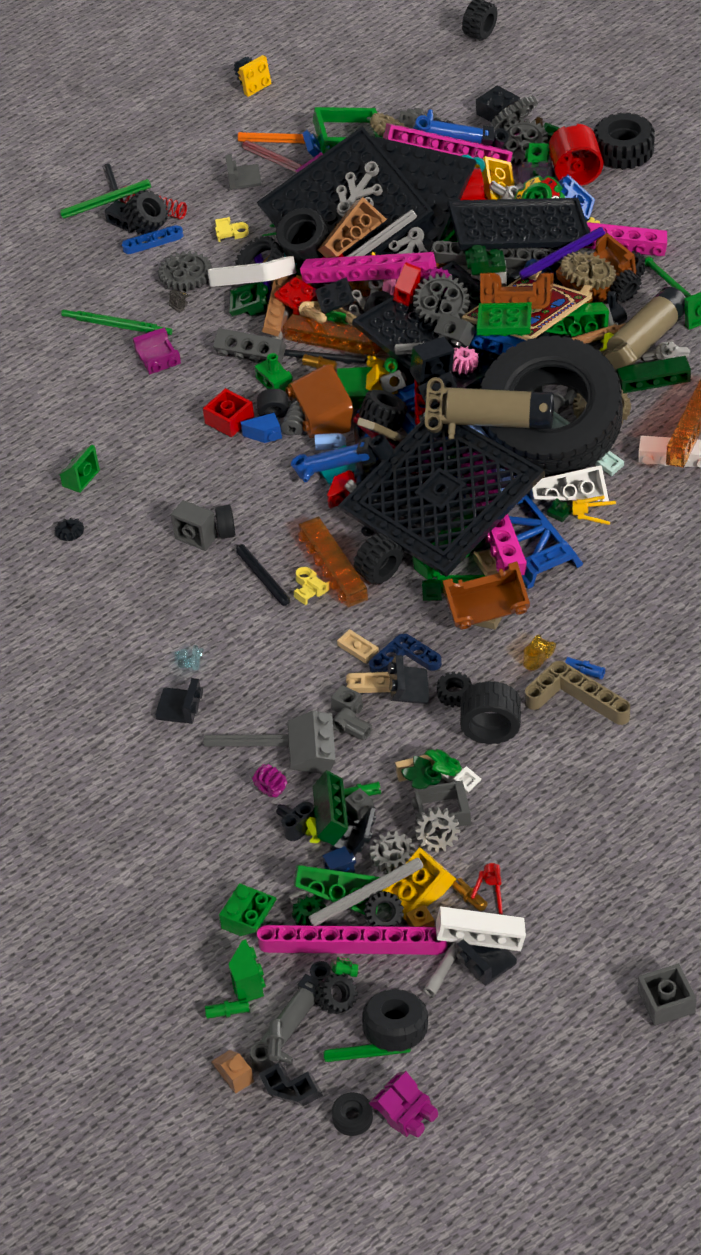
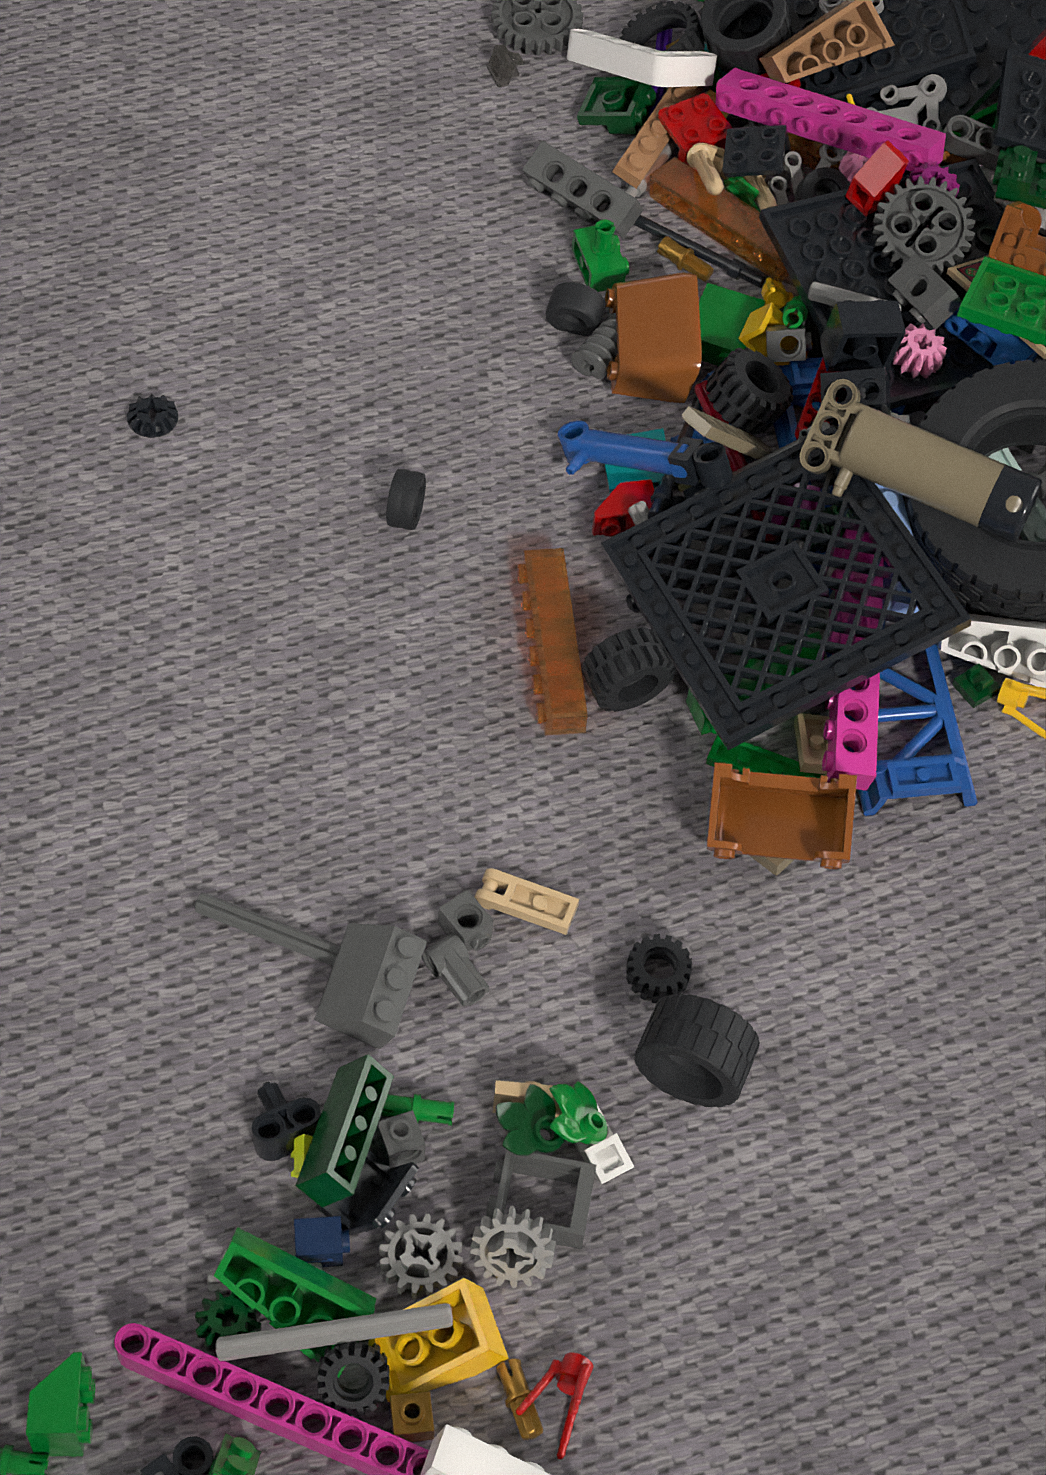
camera: 10 degrees right, 10 degrees up
(80, 470) = (214, 316): green slope -> none
(113, 321) = (391, 69): green axle -> none
(156, 351) = (430, 143): magenta panel -> none
(180, 704) = (186, 815): black bracket -> none
(193, 662) = (245, 743): clear light blue piece -> none
(194, 525) = (351, 487): dark grey brick -> none
(227, 412) = (496, 298): red brick -> none
(245, 910) = (120, 1276): green slope -> none
(262, 428) = (541, 347): blue slope -> none
(263, 575) = (429, 621): black axle -> none
(269, 780) = (269, 1030): magenta gear -> none
(310, 585) = (500, 669): light yellow piece -> none
(329, 441) = (642, 410): light blue piece -> none
(357, 646) = (529, 819): tan plate -> none
(384, 234) = (878, 70): light grey axle -> none
(403, 649) = (602, 854): dark blue beam -> none
(407, 683) = (582, 929): black bracket -> none
(432, 590) = (698, 758): dark green tile -> none
(537, 652) = (835, 947): clear yellow piece -> none
(578, 685) = (871, 1056): dark tan beam -> none
(586, 668) = (918, 1029): blue pin -> none

